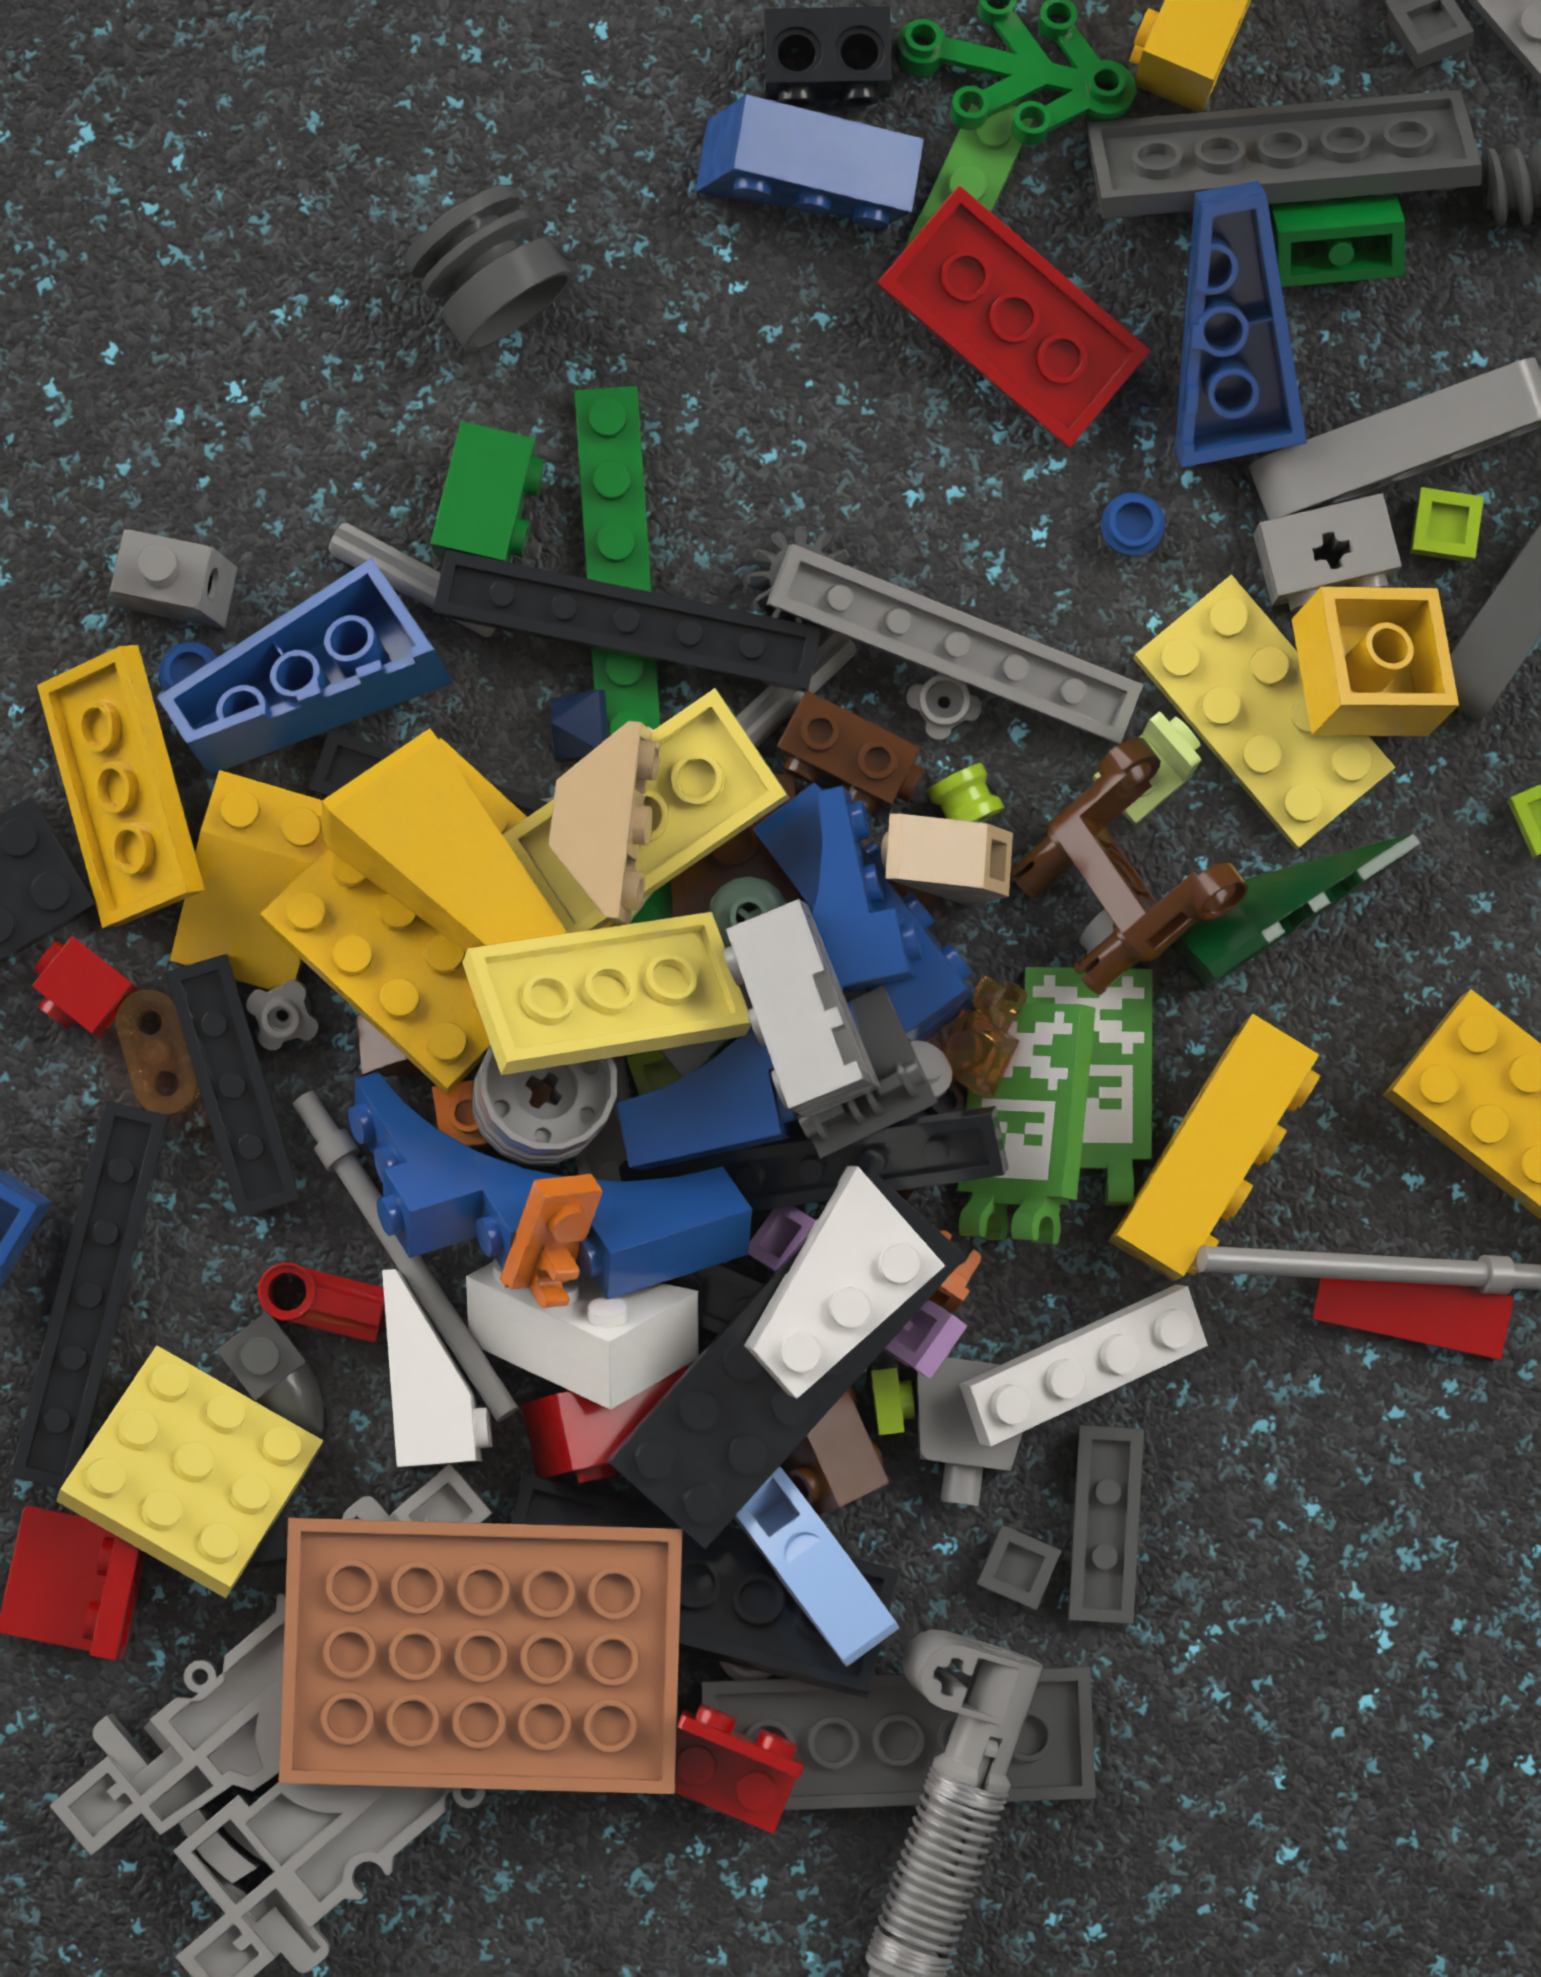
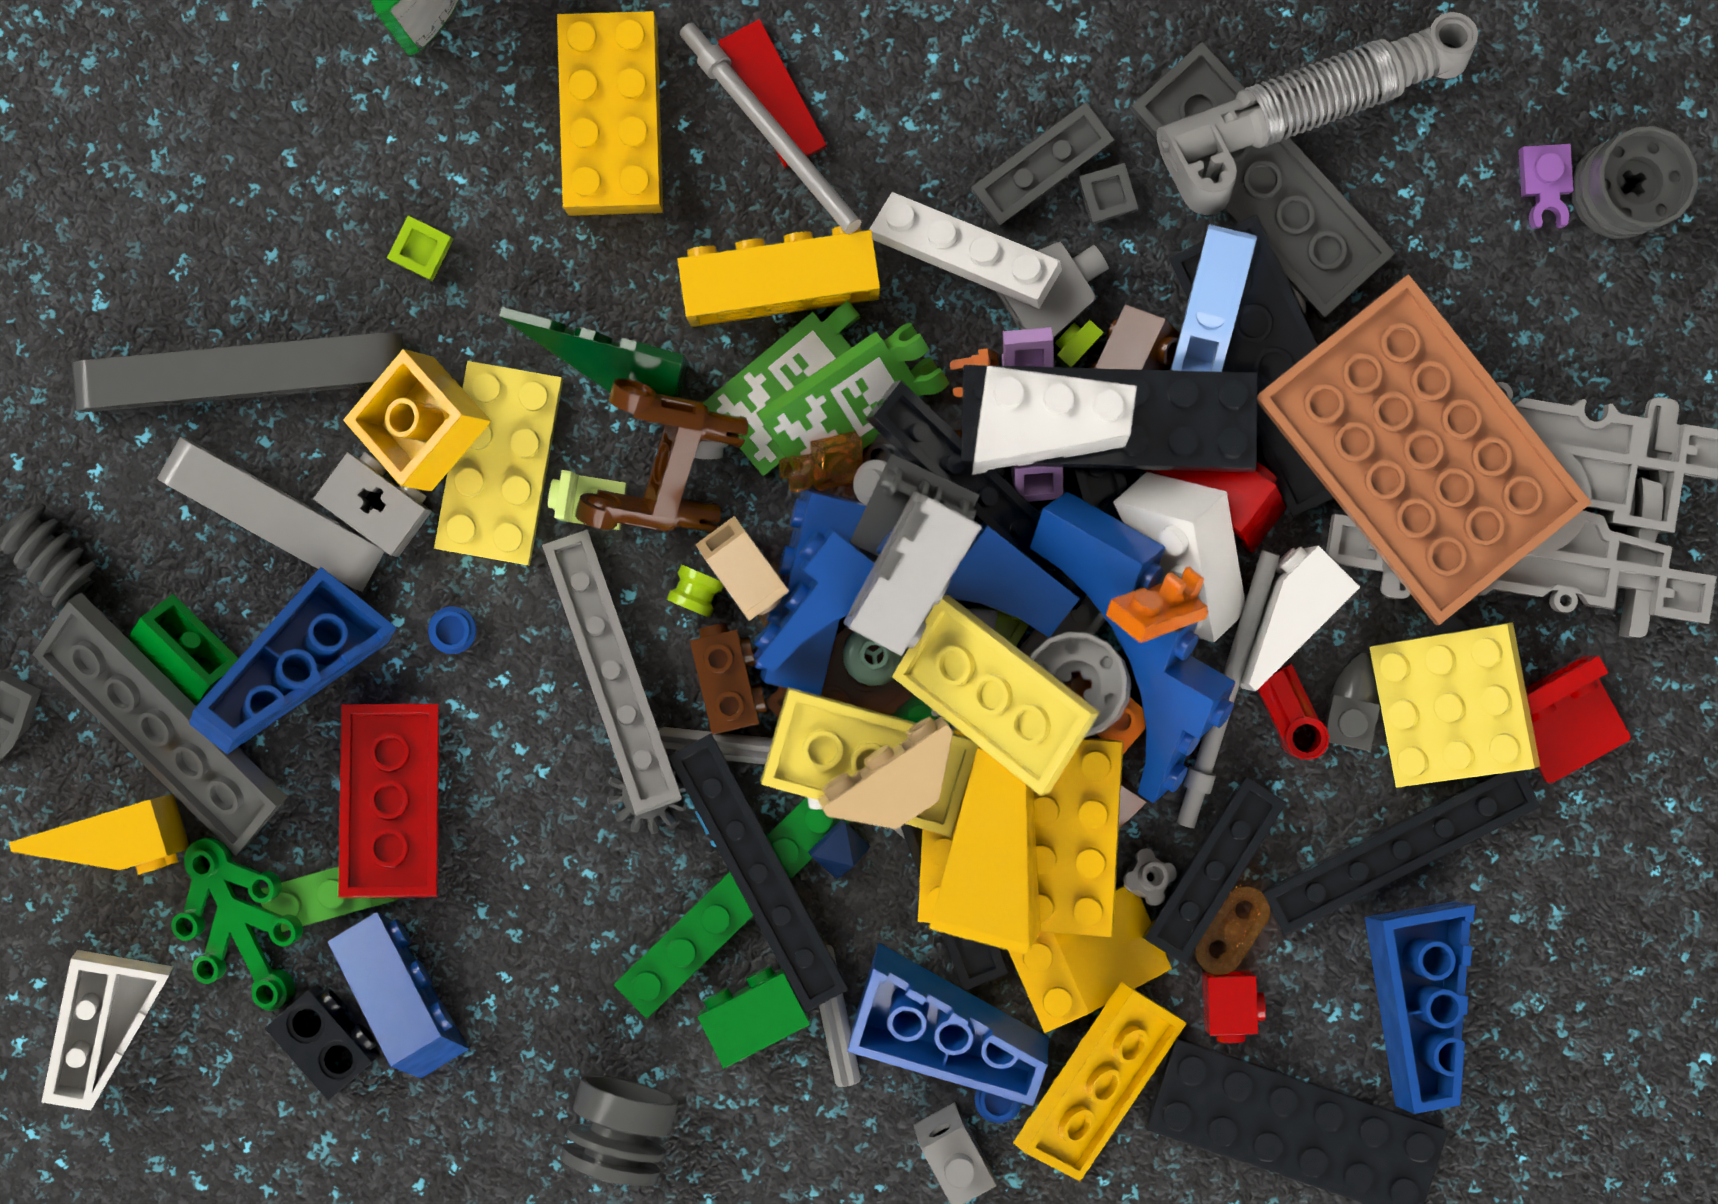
camera: 135 degrees left, 5 degrees up
(733, 1770) = (1359, 256): red bracket -> none
(938, 719) = (661, 646): light grey plate -> none
(1446, 525) = (299, 448): lime plate -> none

